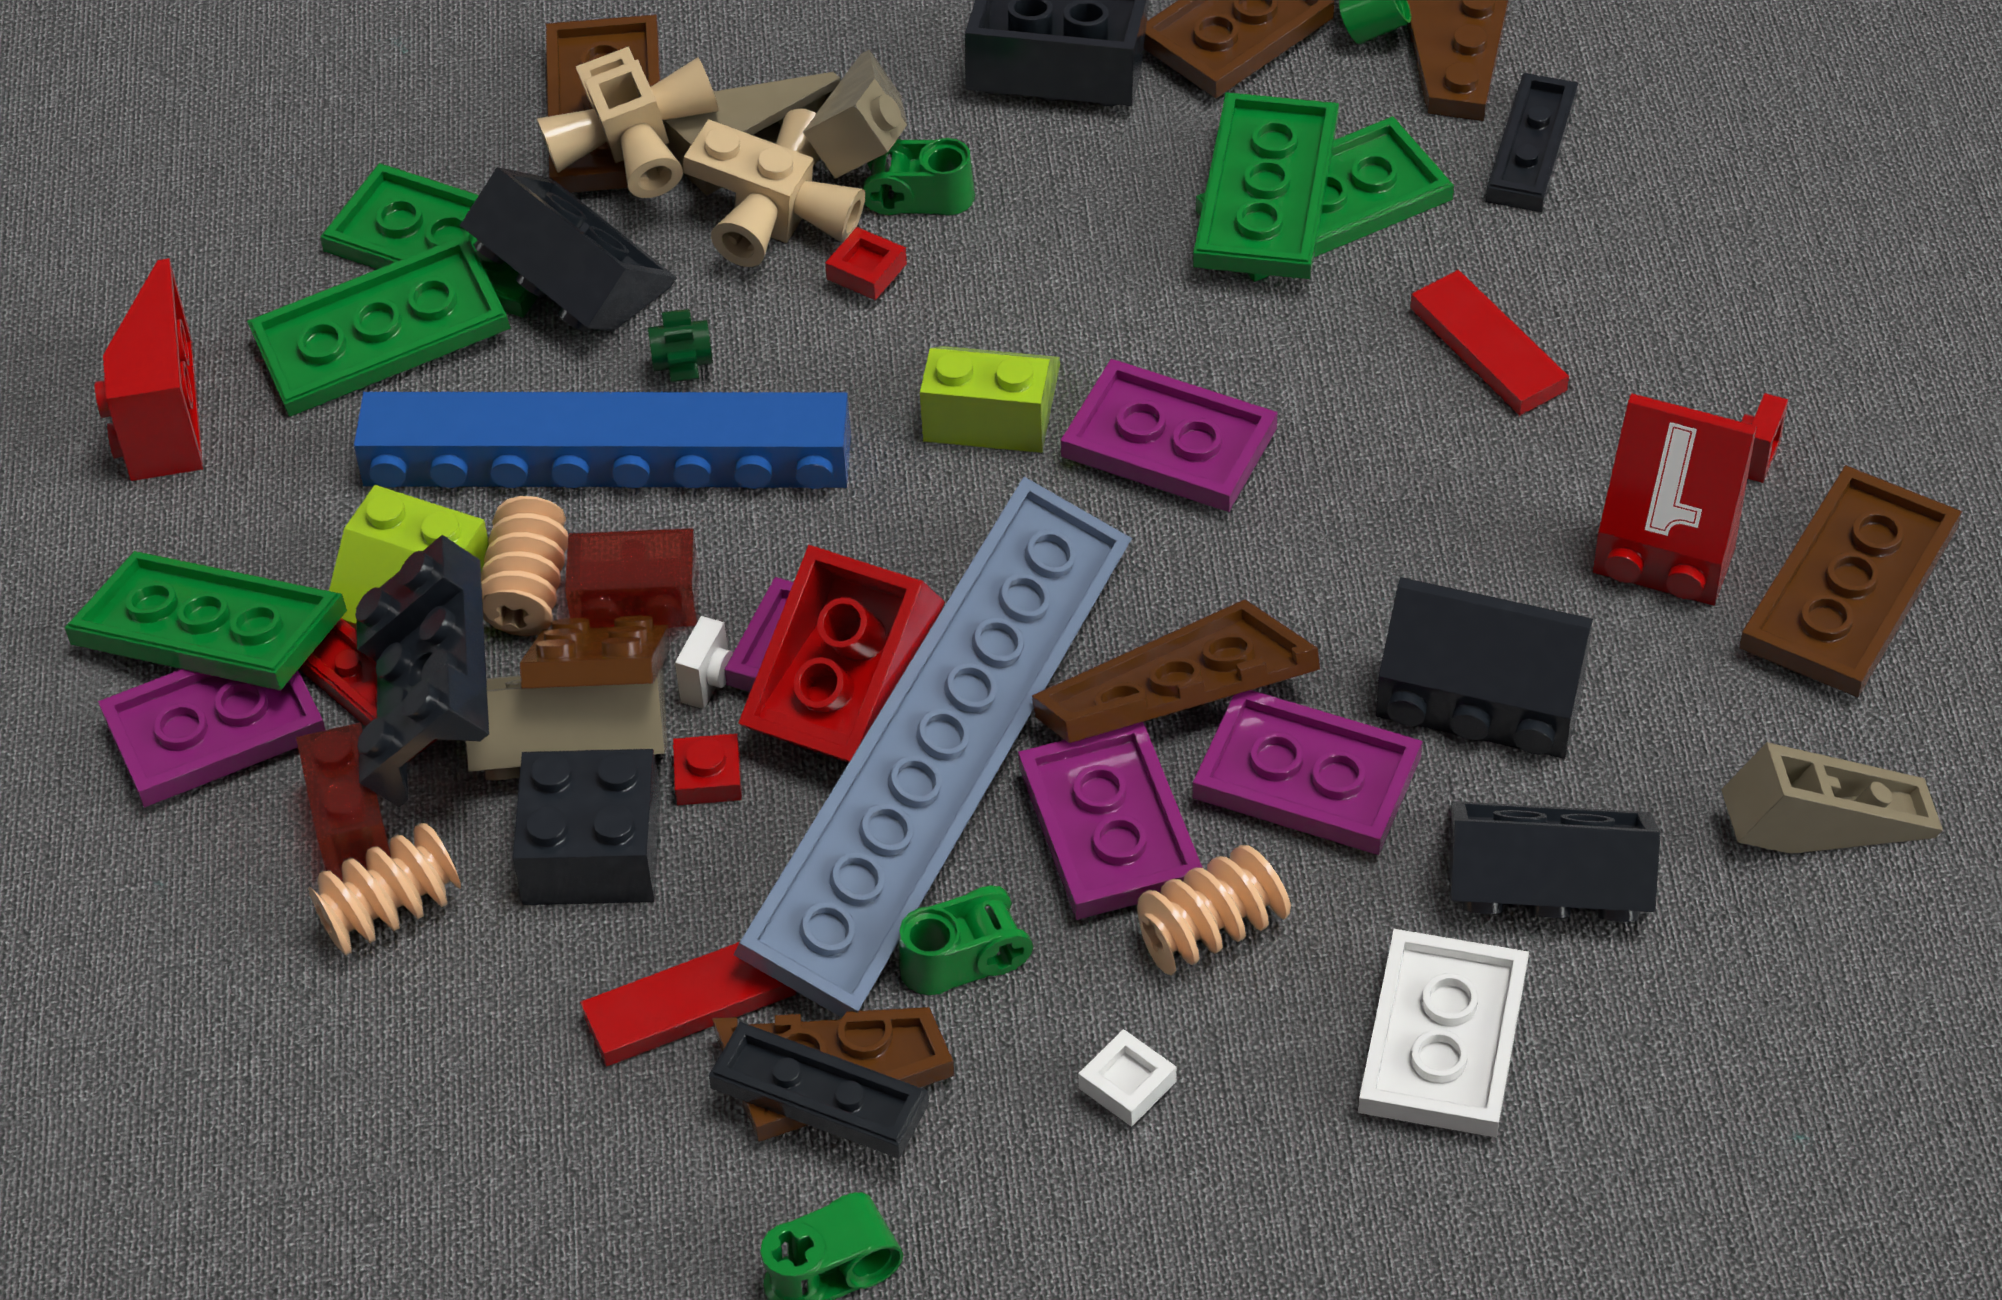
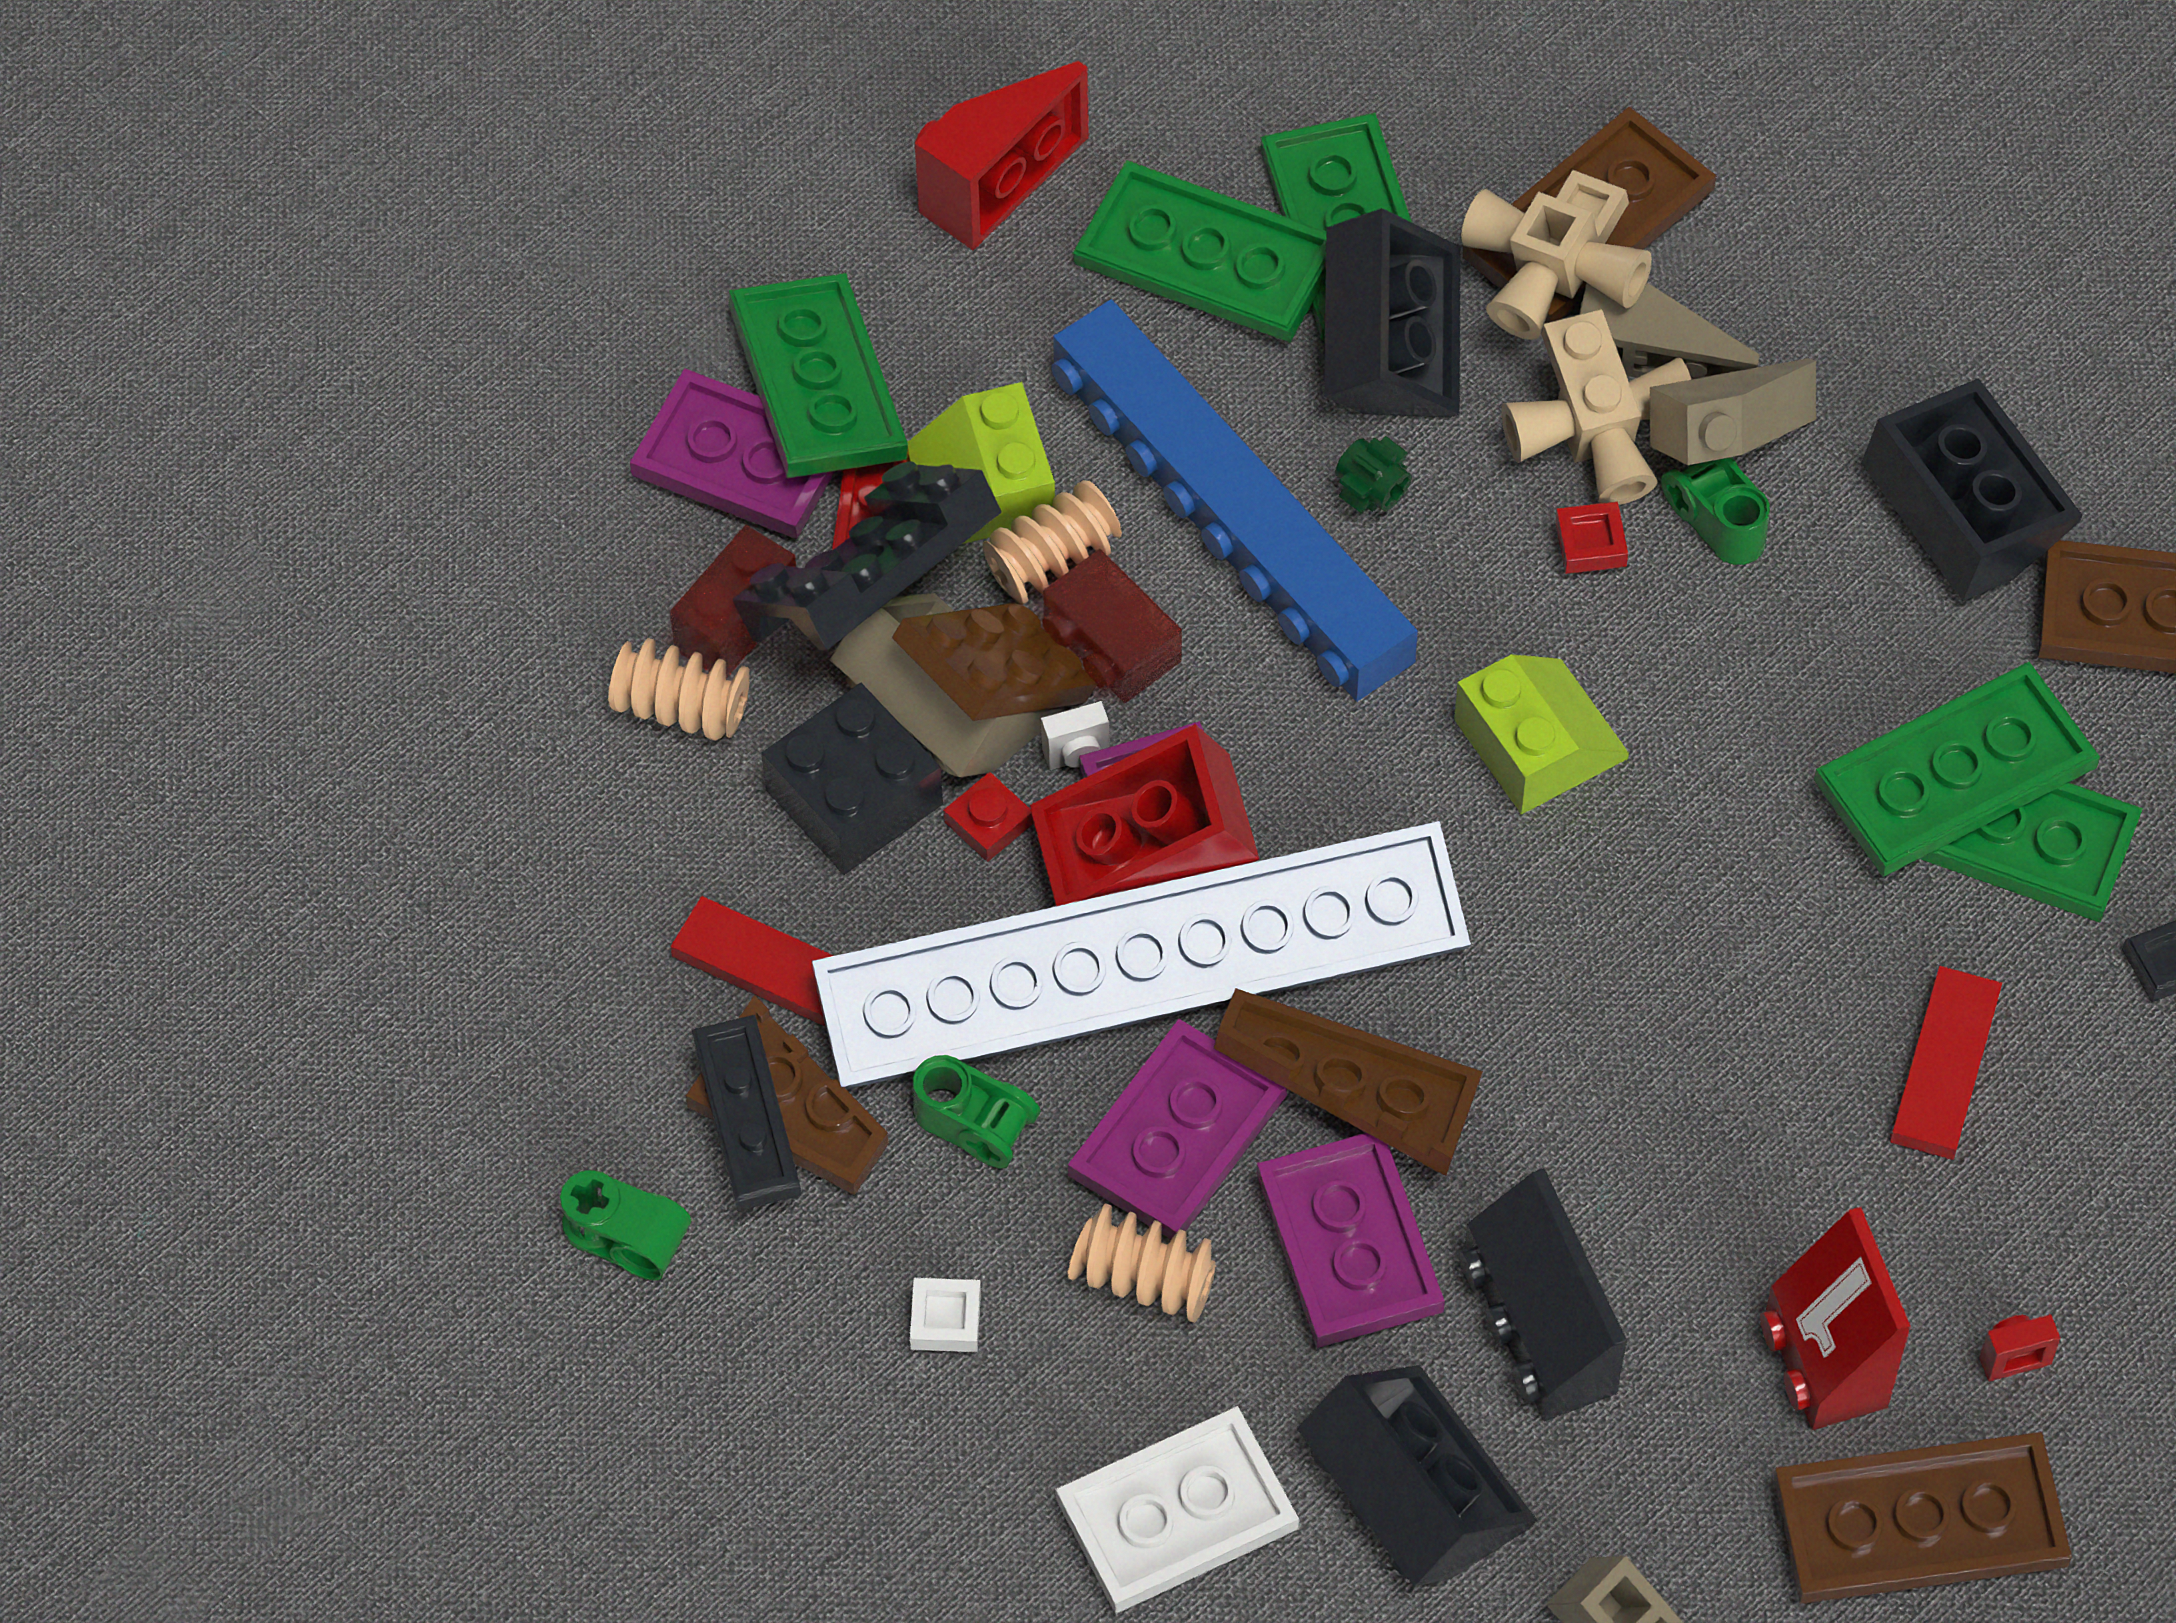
camera: 50 degrees right, 10 degrees up
(1169, 434) = (1611, 893): magenta plate -> none

